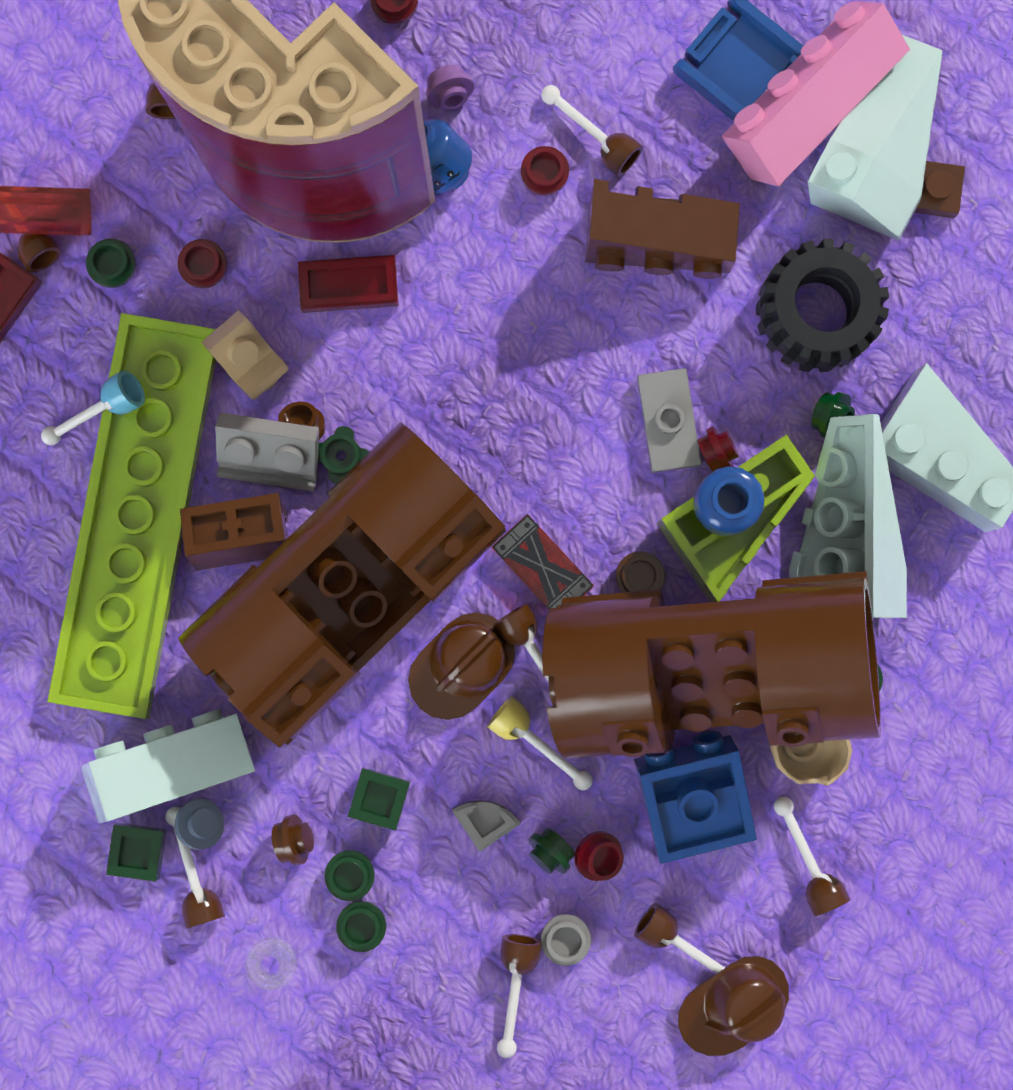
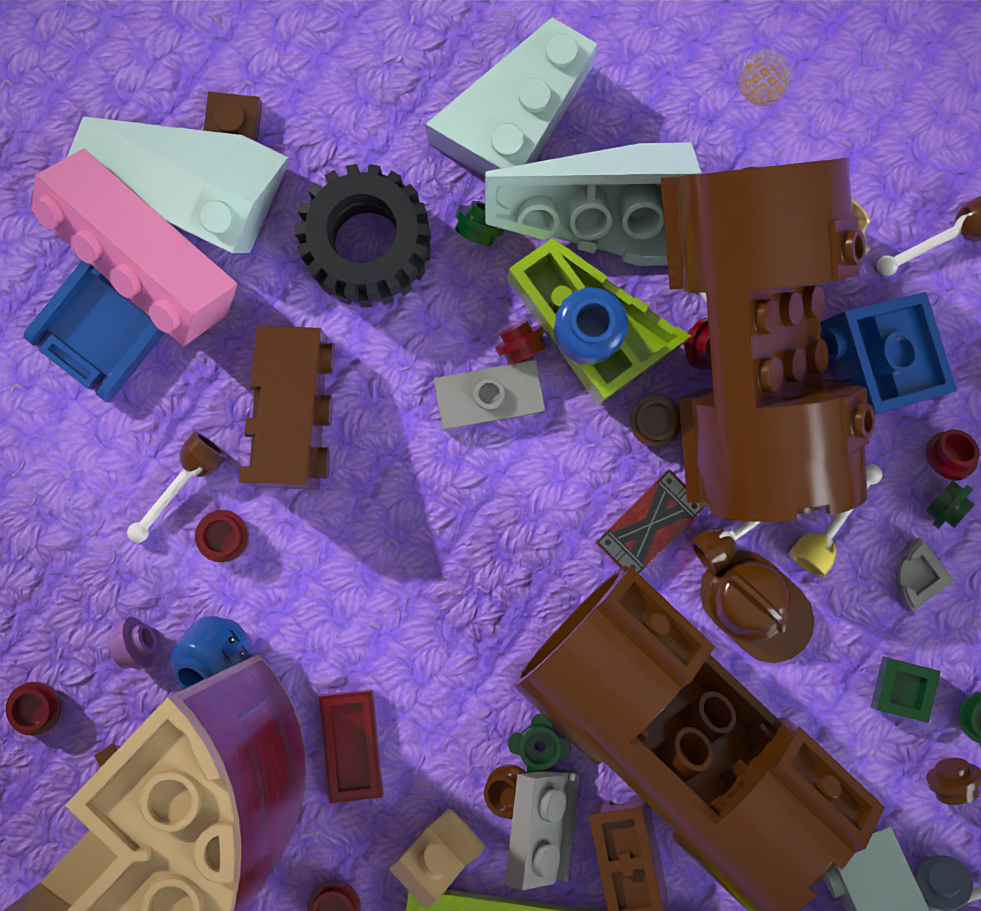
camera: 95 degrees left, 0 degrees up
(971, 697) = (765, 77): none -> clear tile

